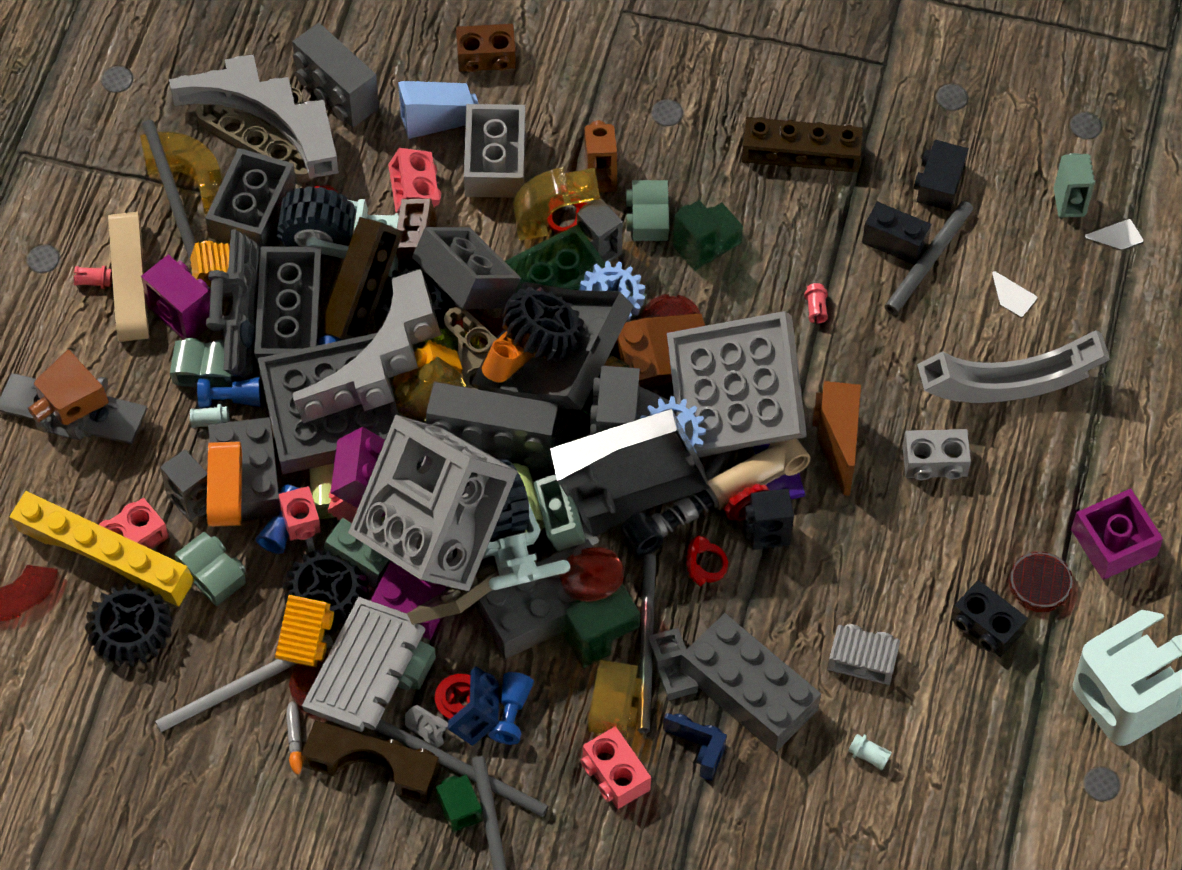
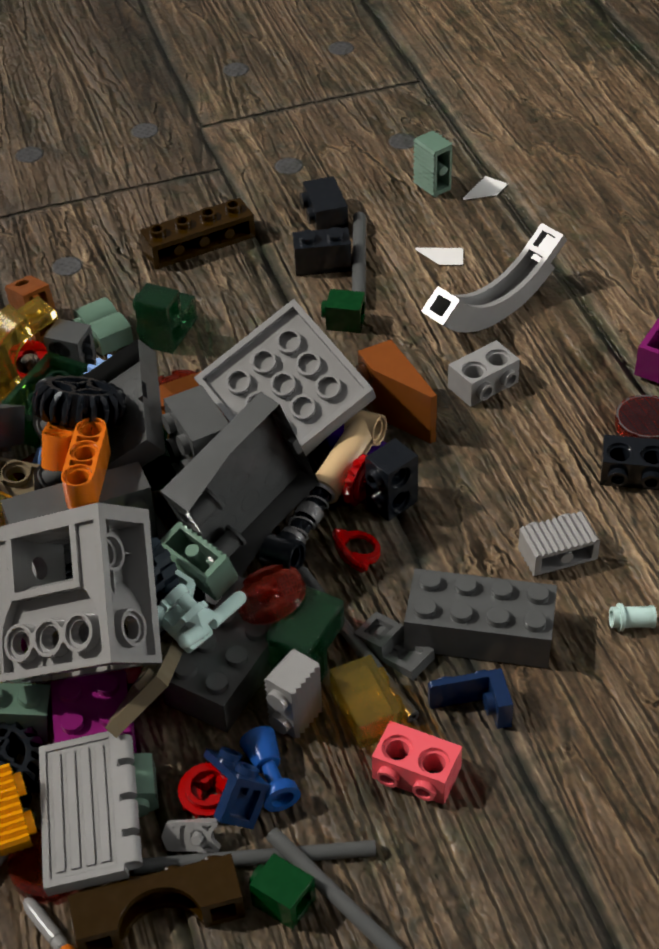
camera: 30 degrees left, 15 degrees down
(507, 401) = (86, 463): none -> orange beam
(561, 663) = (293, 694): none -> light grey brick
(868, 314) = (344, 310): none -> dark green brick

